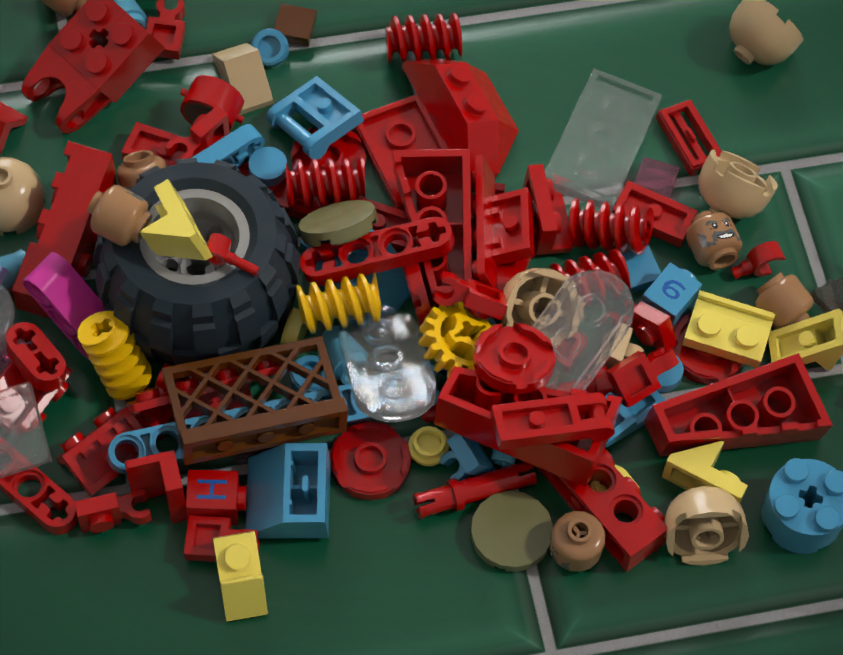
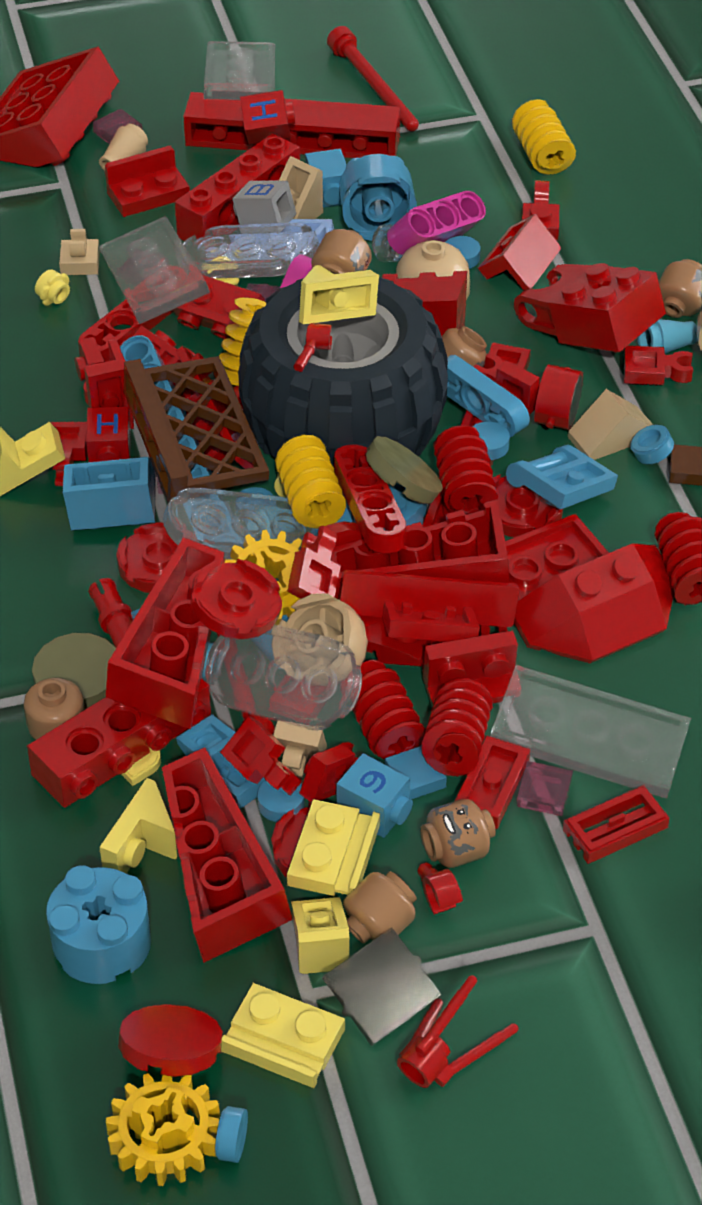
camera: 90 degrees right, 15 degrees down
(42, 351) = (235, 287): red beam -> none
(551, 420) = (148, 616): red plate -> none
(705, 526) = (75, 819): tan cylinder -> none
(733, 187) = (537, 845): tan cylinder -> none

